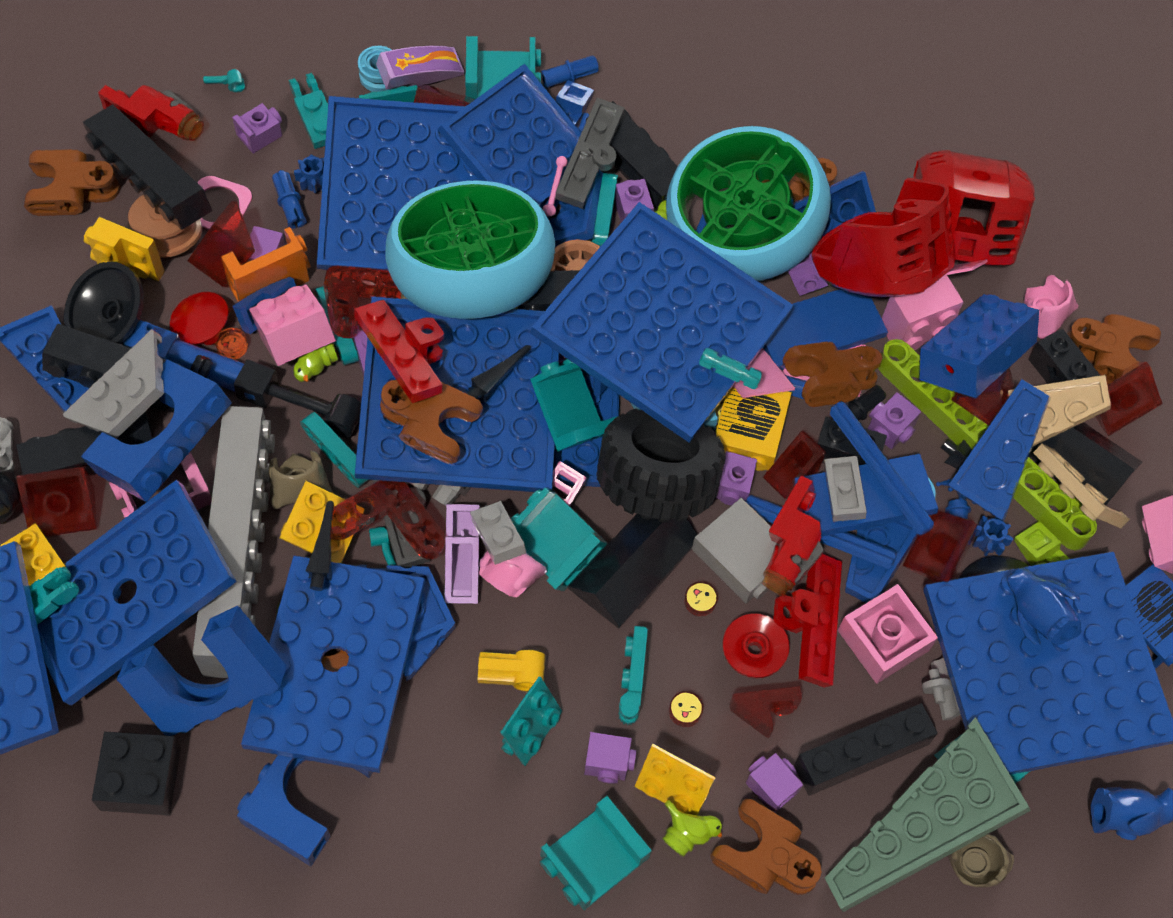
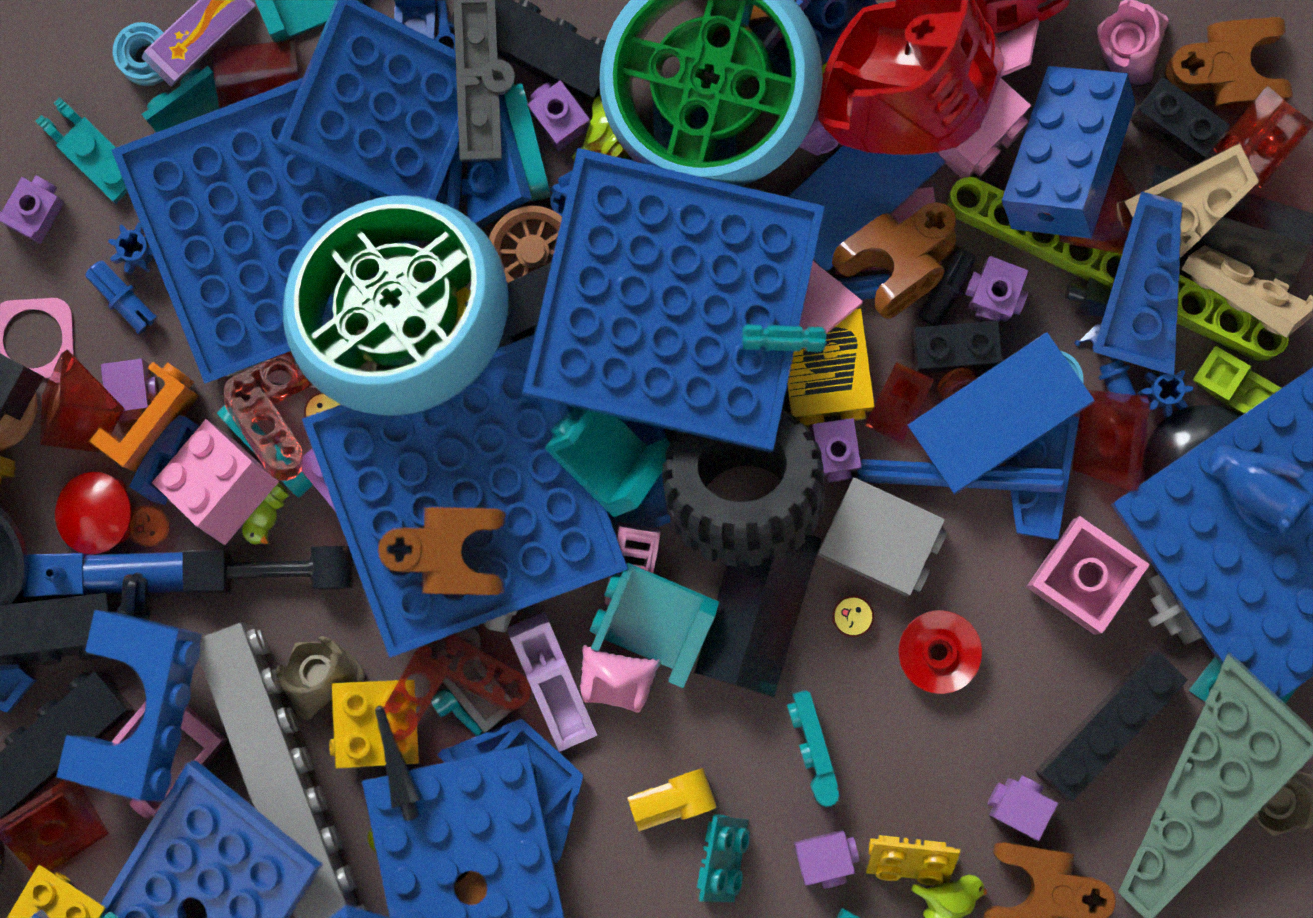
camera: 15 degrees left, 20 degrees up
(123, 390) = (62, 672): light grey wing -> none
(332, 446) = (334, 612): teal beam -> none
(404, 349) = (378, 483): red plate -> none
(486, 382) = (494, 474): black piece -> none
(498, 532) = (588, 653): light grey plate -> none
(550, 209) = (458, 177): bright pink hinge -> none
(685, 709) = (888, 759): light yellow tile -> none
(757, 706) = (970, 726): clear red slope -> none
(797, 540) = (946, 515): red plate -> none
(816, 616) = (996, 587): red plate -> none
(845, 488) = (975, 422): light grey plate -> none
(881, 468) = (1008, 377): blue axle -> none

